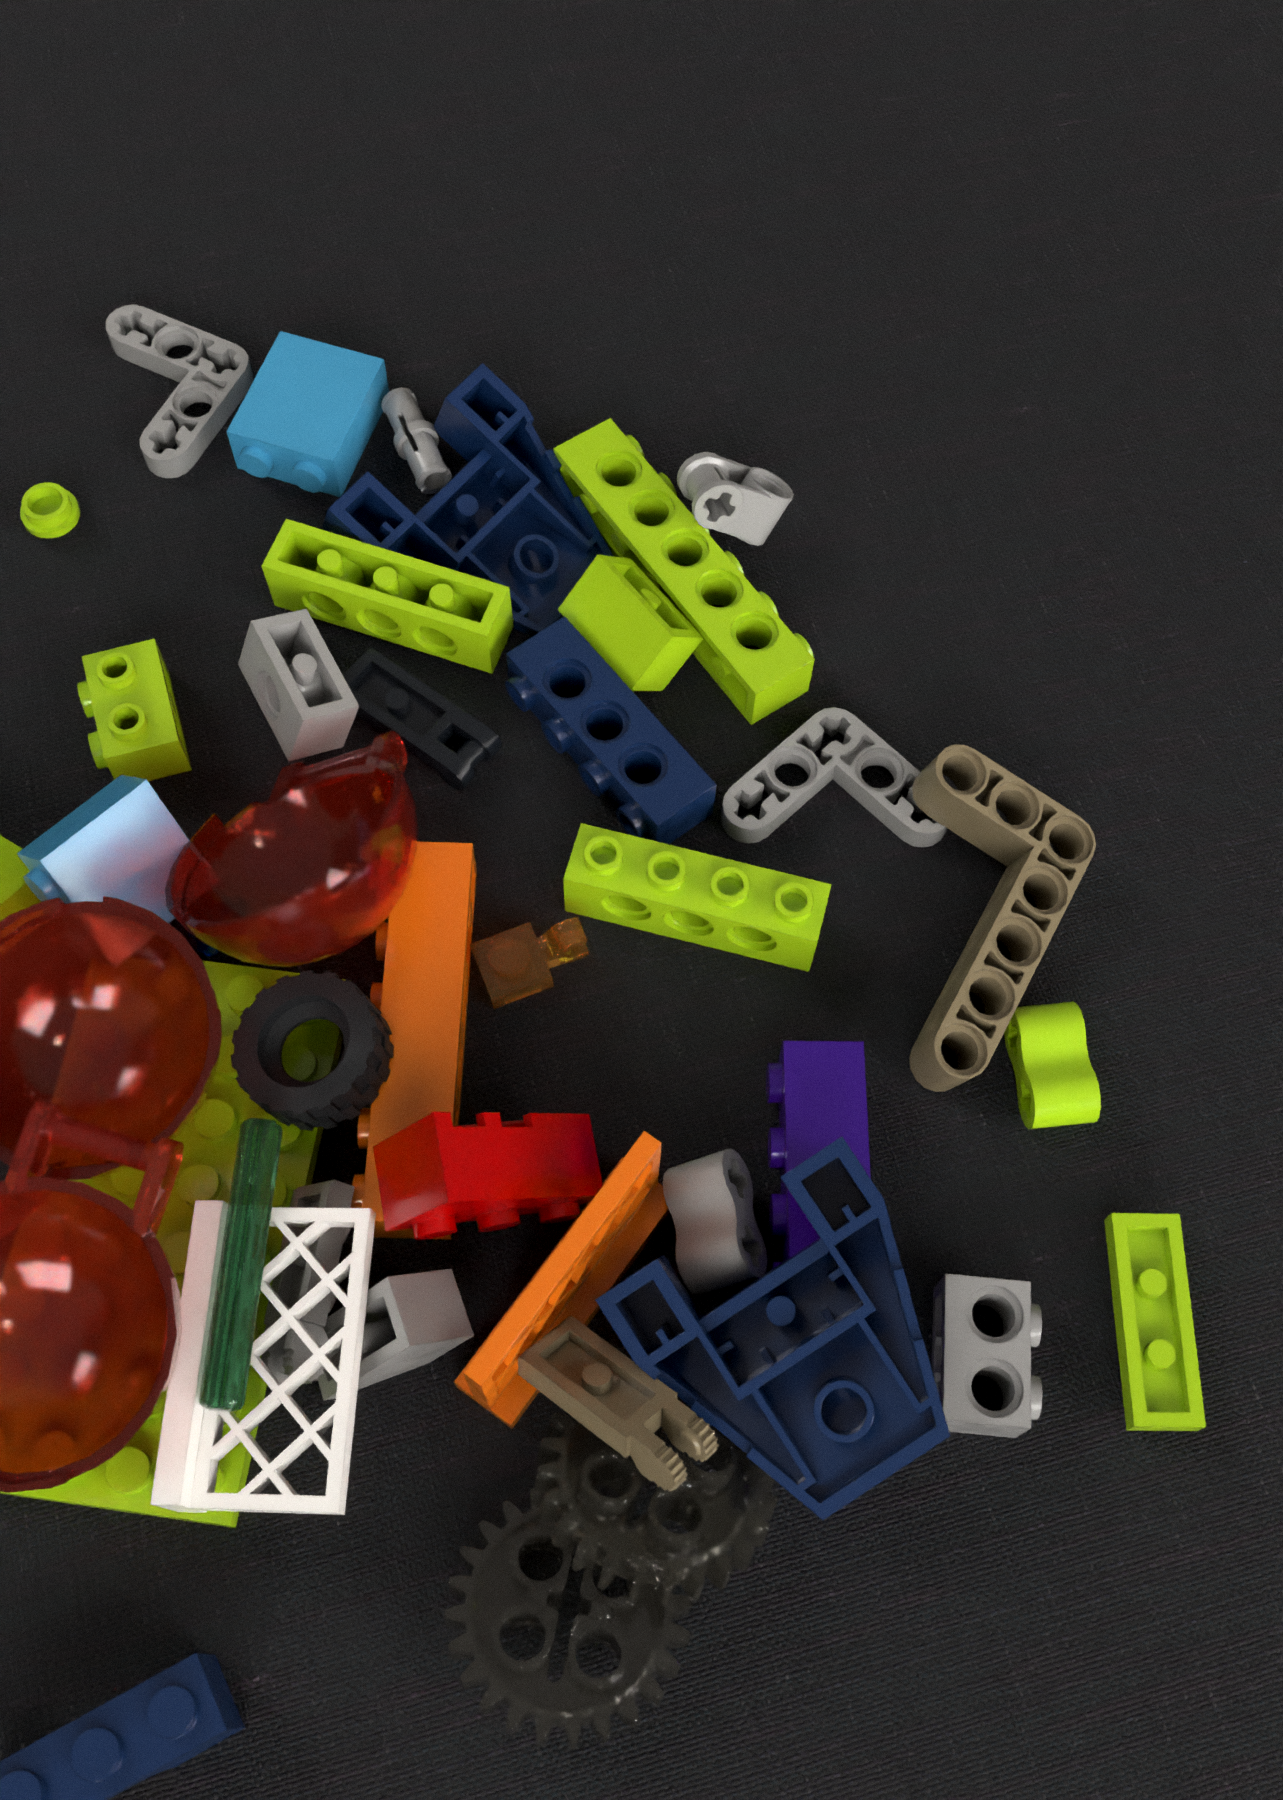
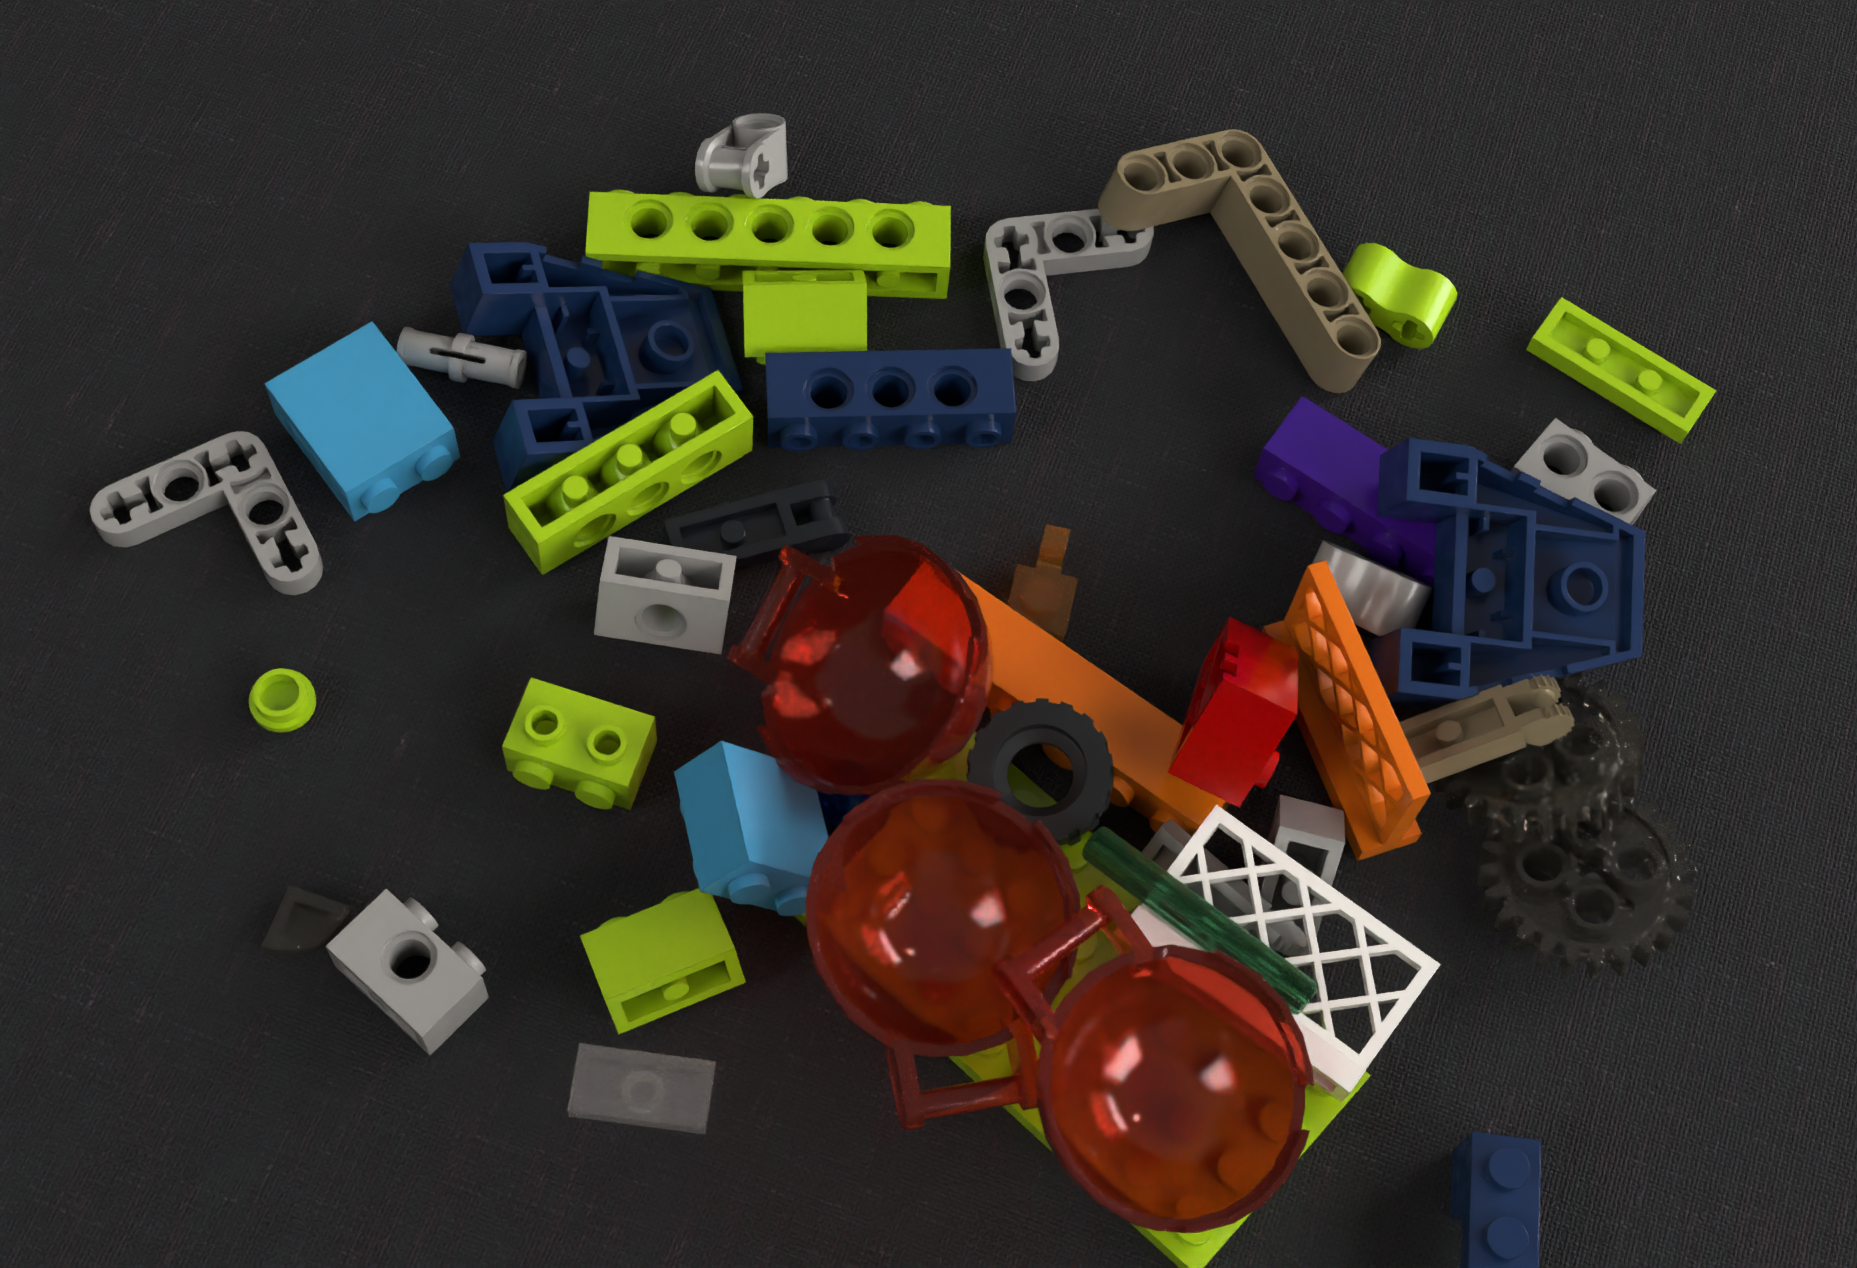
camera: 60 degrees left, 0 degrees up
(695, 897) = (1087, 433): lime brick -> none

